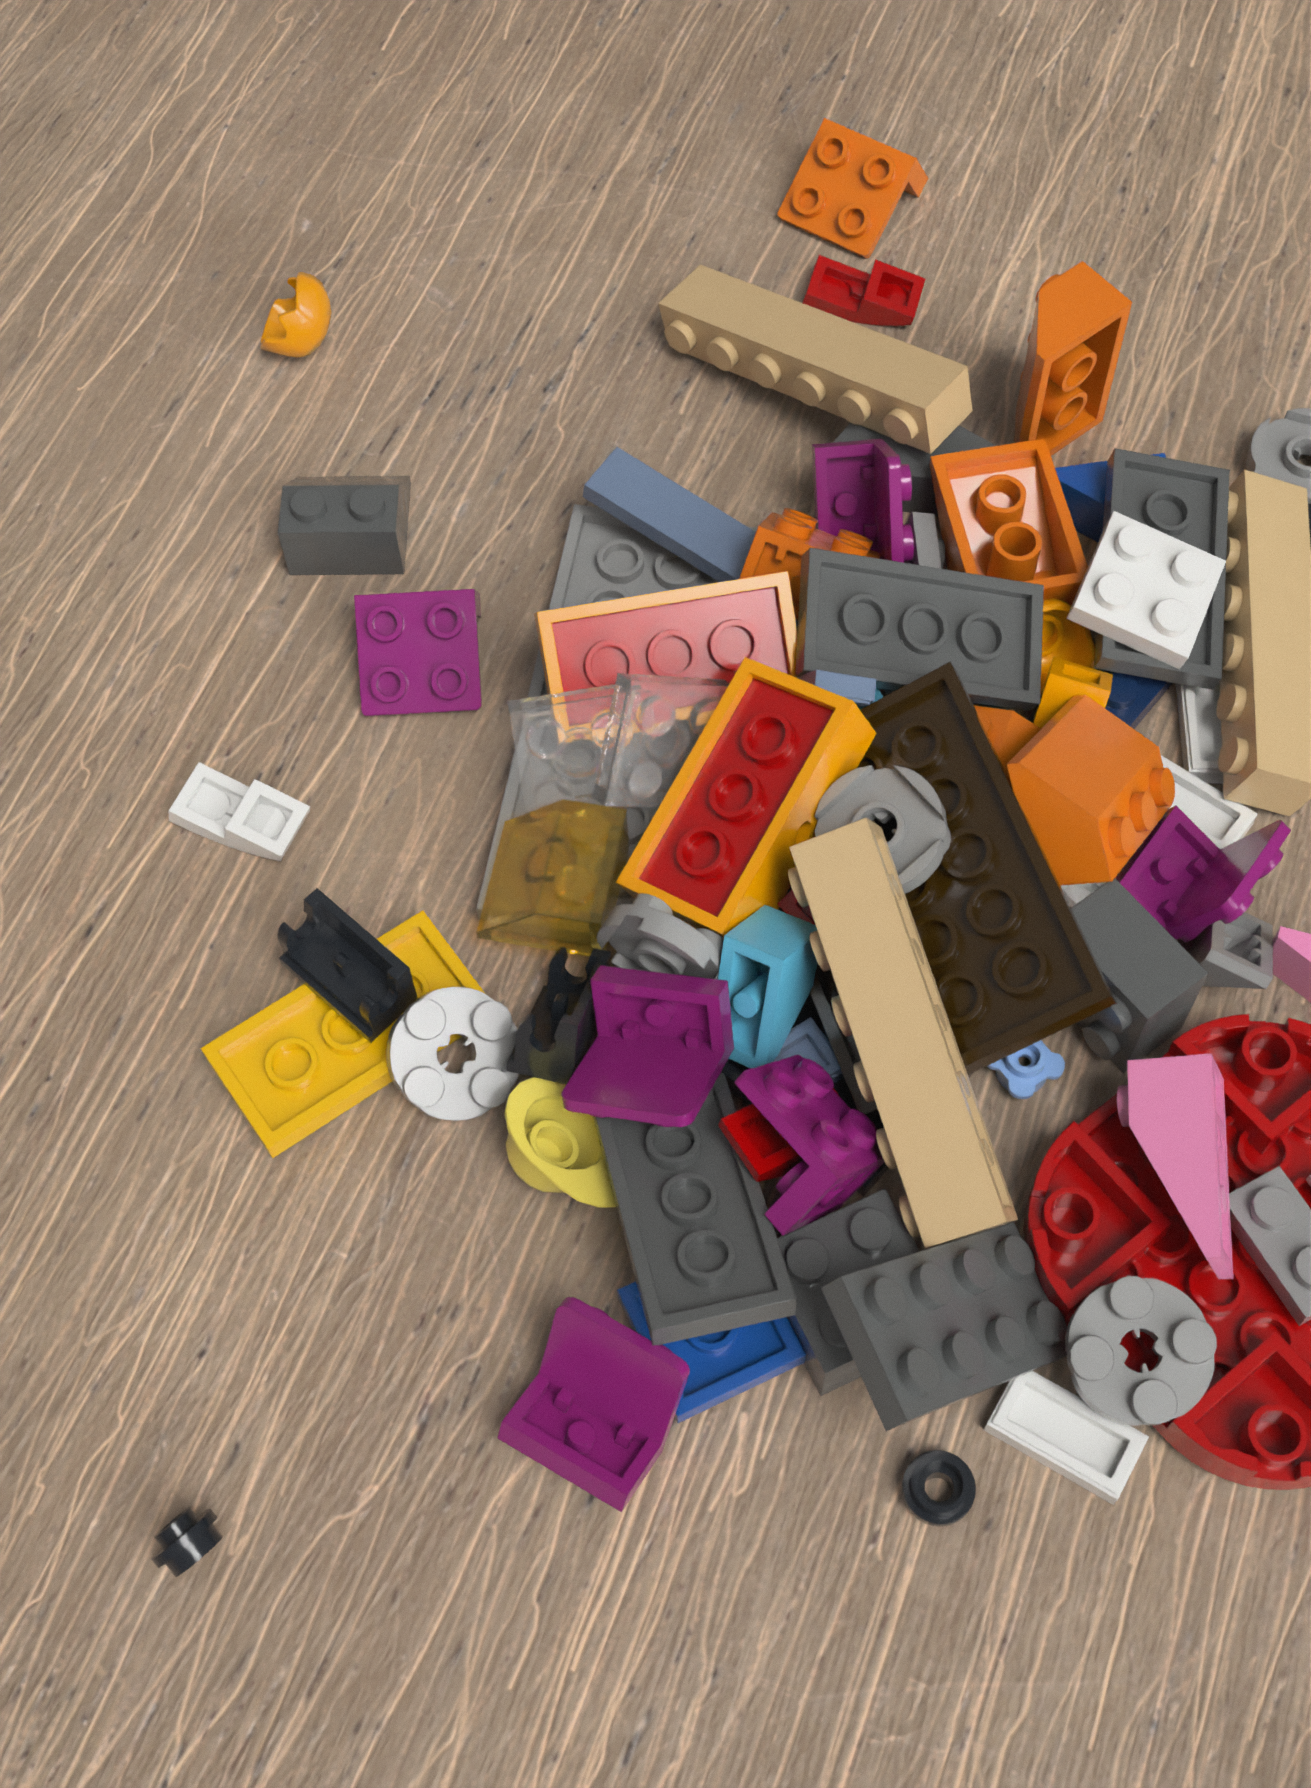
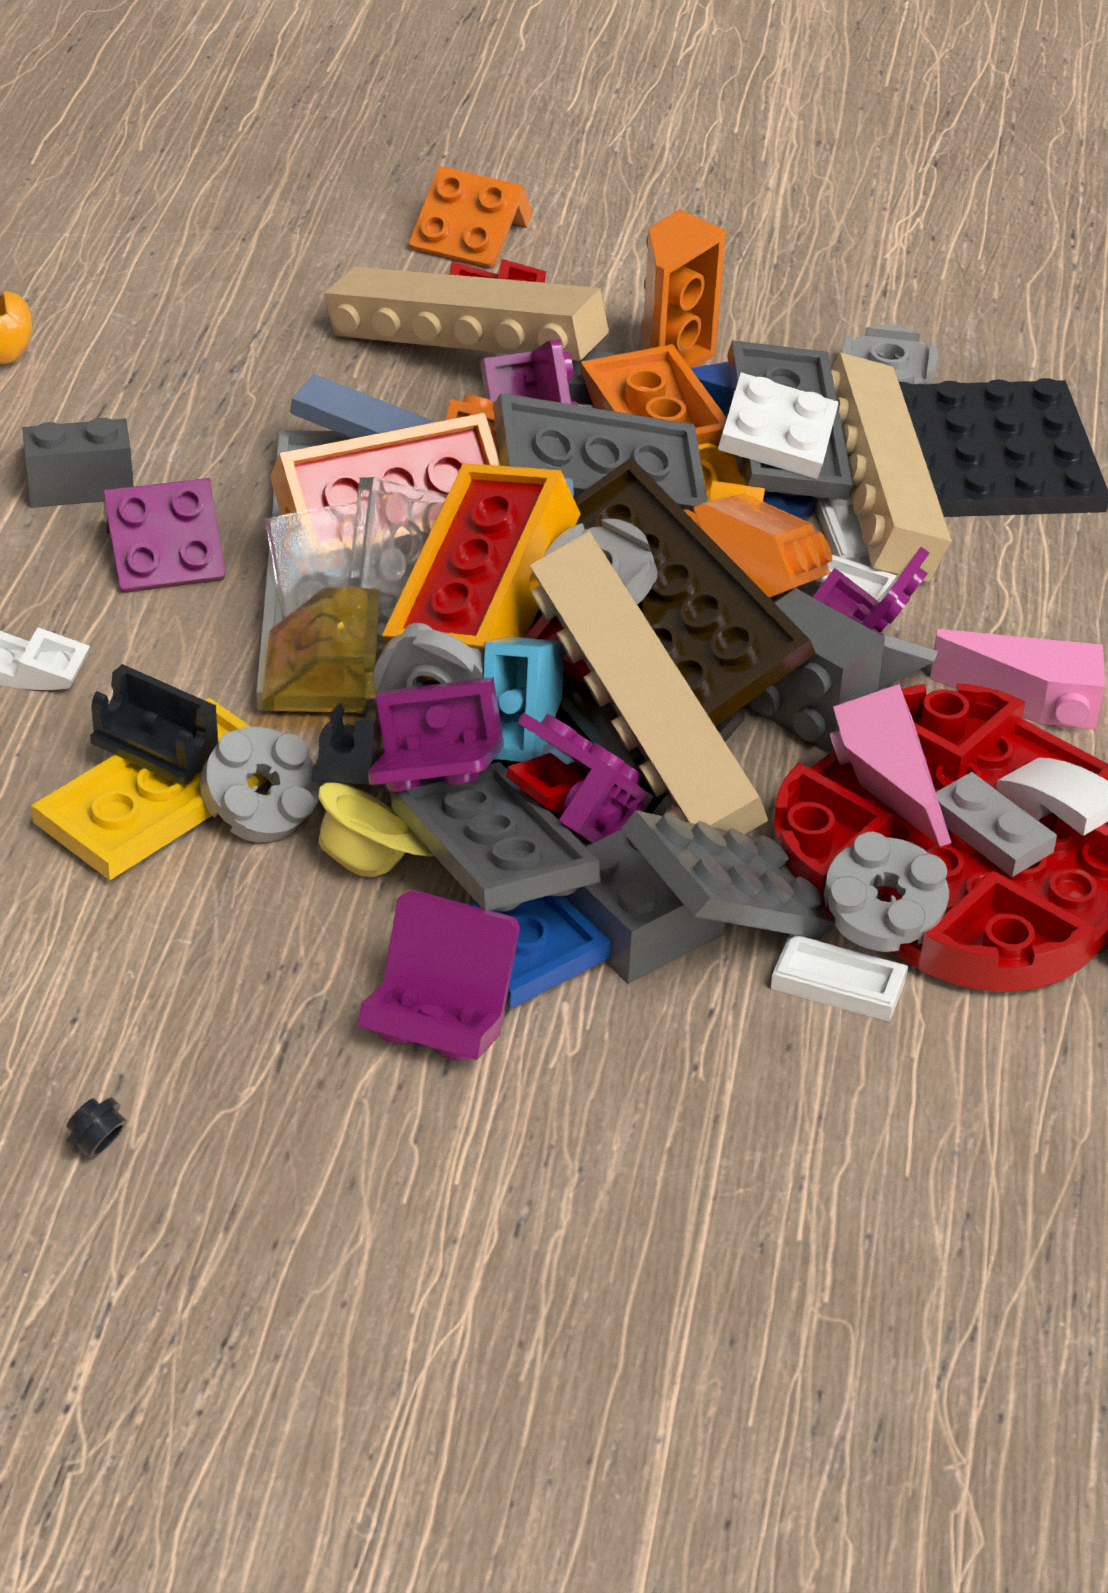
camera: 15 degrees left, 20 degrees down
(950, 1469) = (742, 1018): black plate -> none
(1025, 1080) = (753, 749): light blue plate -> none

